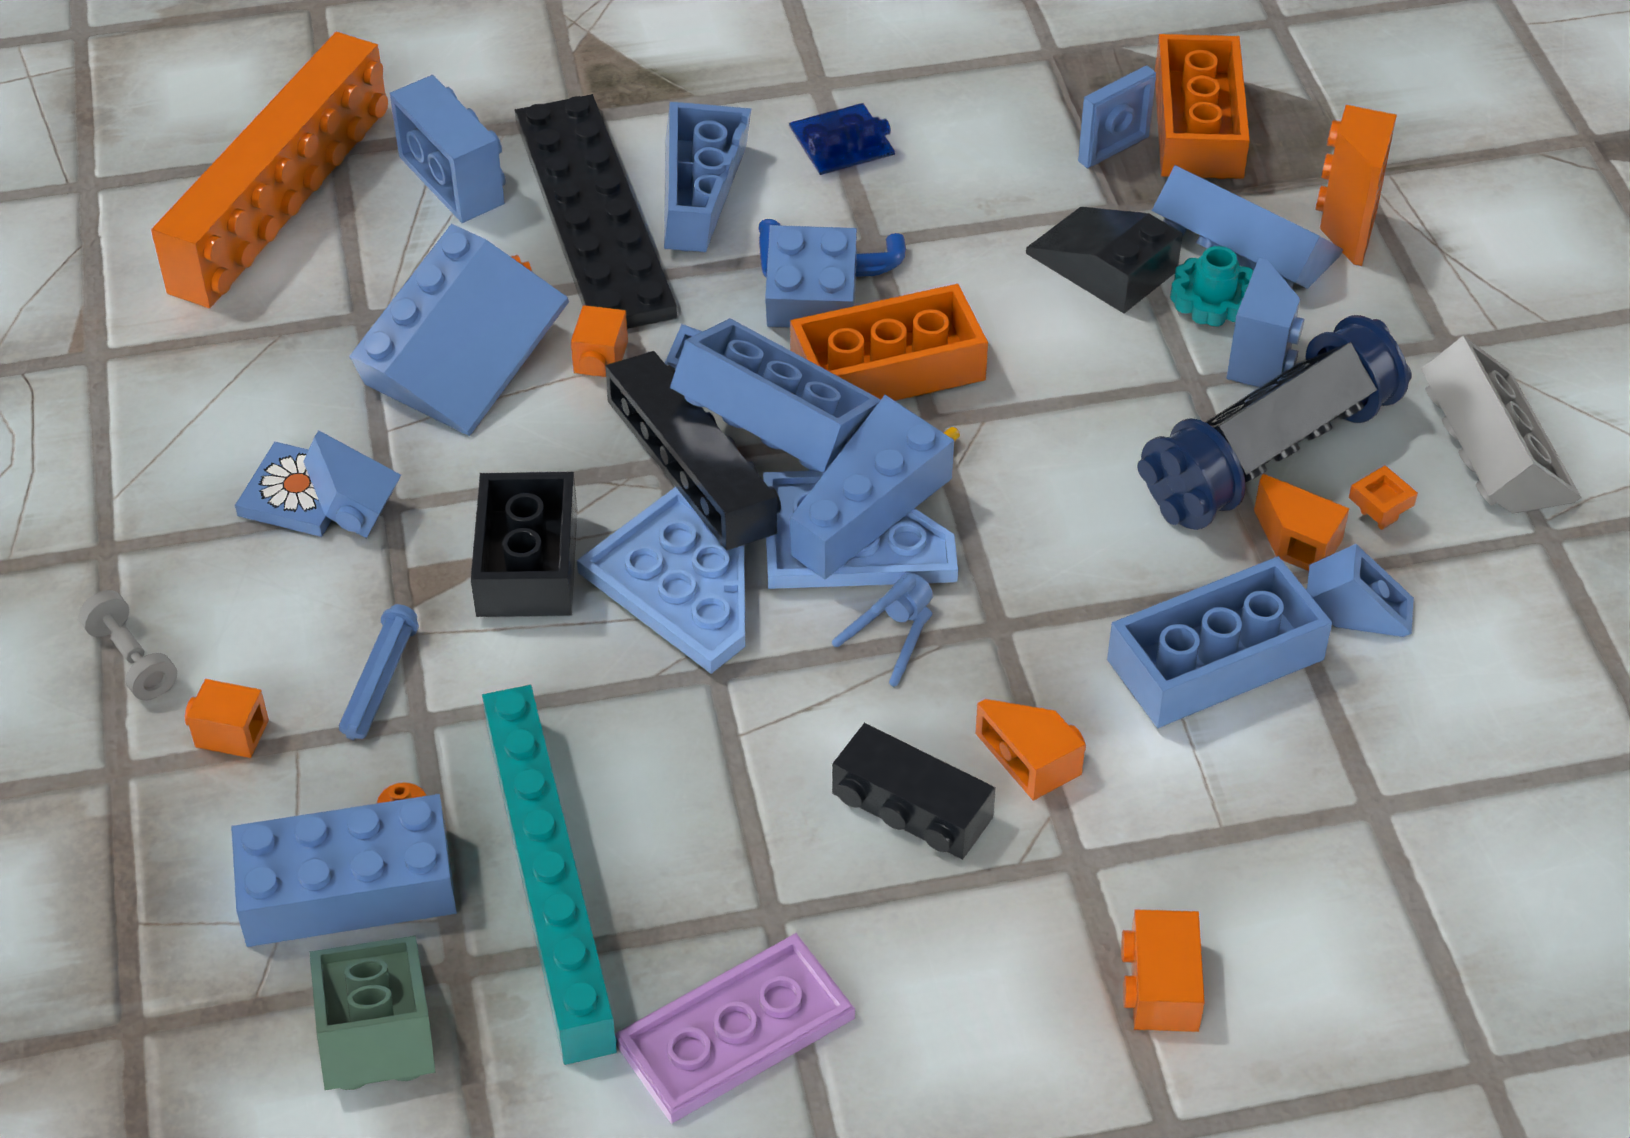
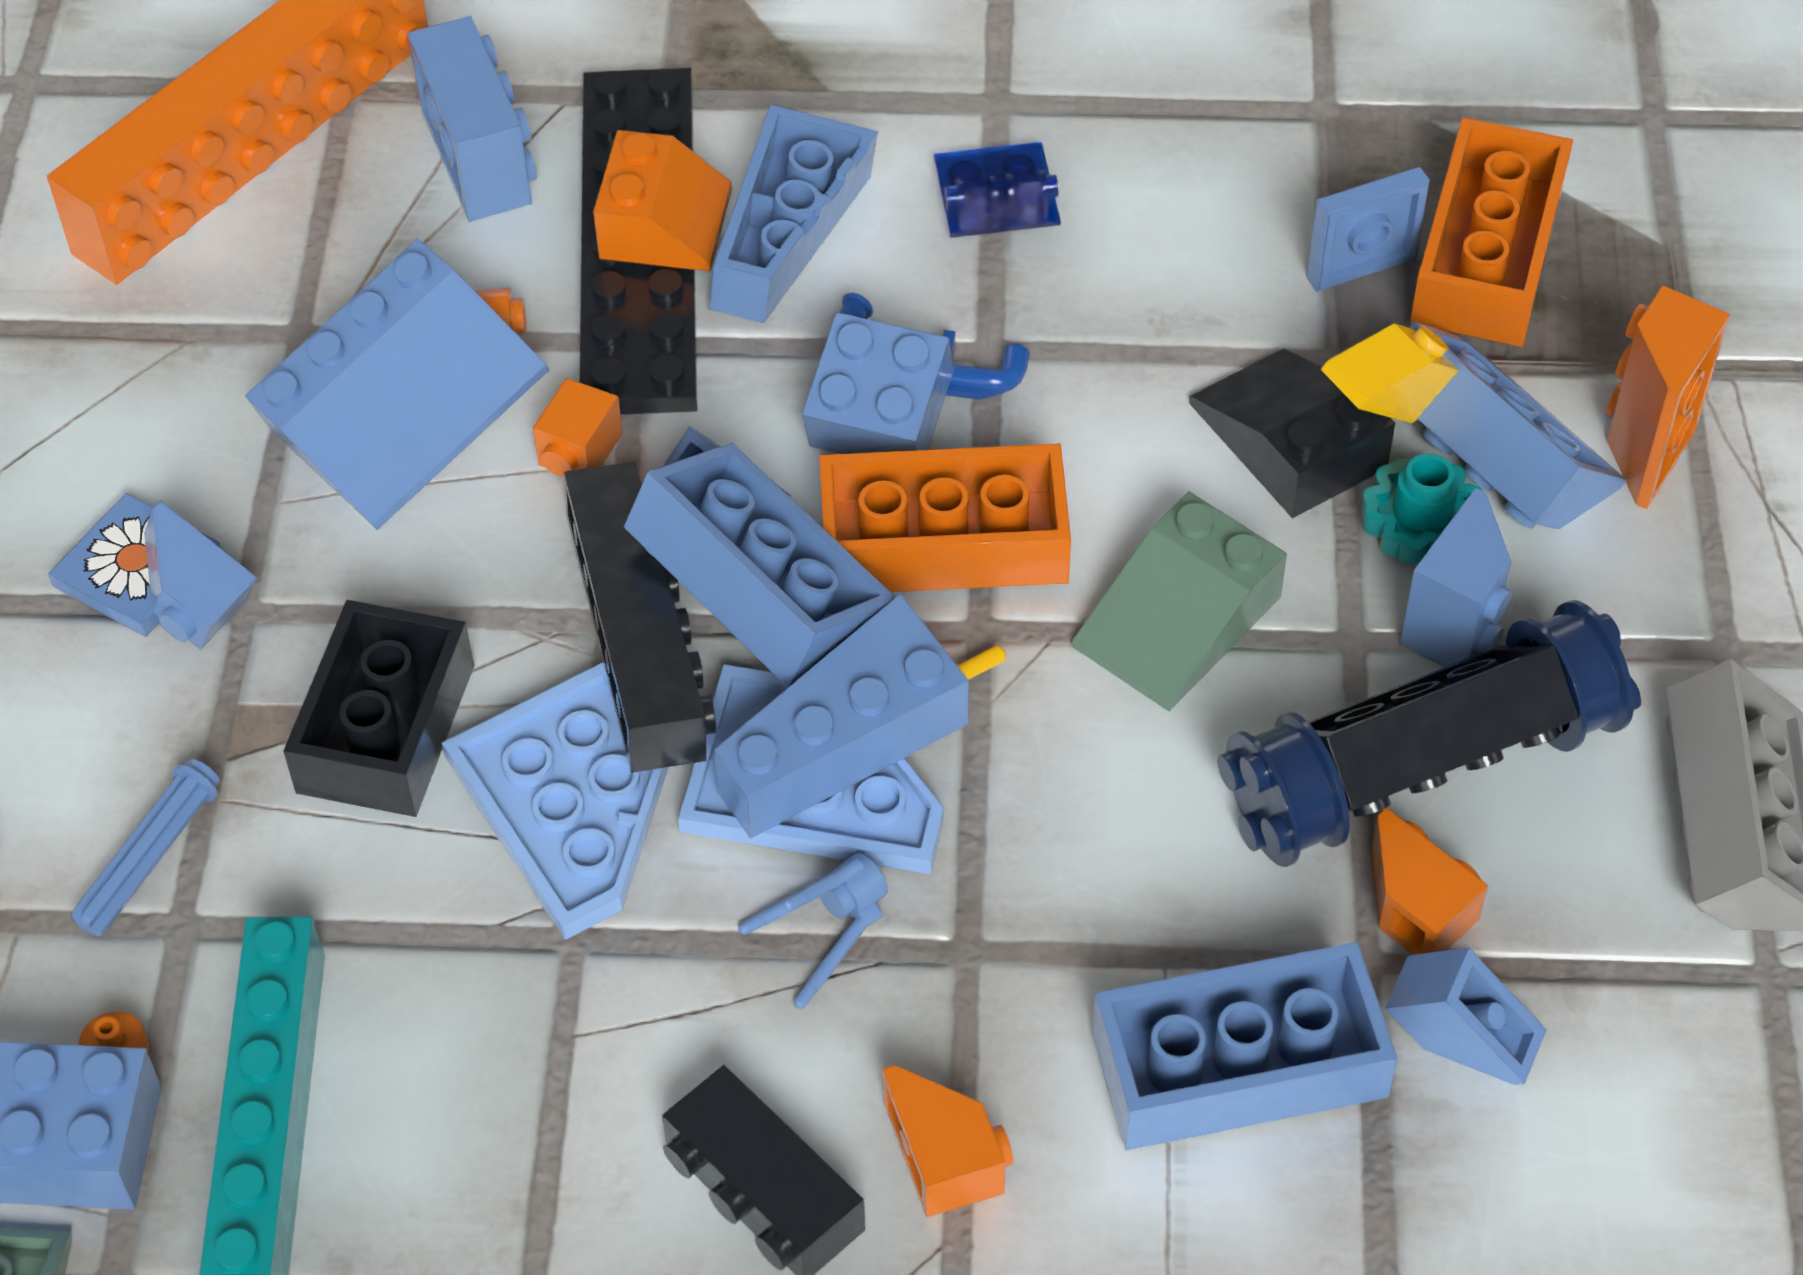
camera: 15 degrees right, 5 degrees up
(610, 181) = (659, 204): none -> orange slope
(1071, 374) = (1182, 601): none -> sand green slope
(1174, 196) = (1393, 371): none -> yellow slope
(1383, 496) = (1547, 872): orange tile -> none

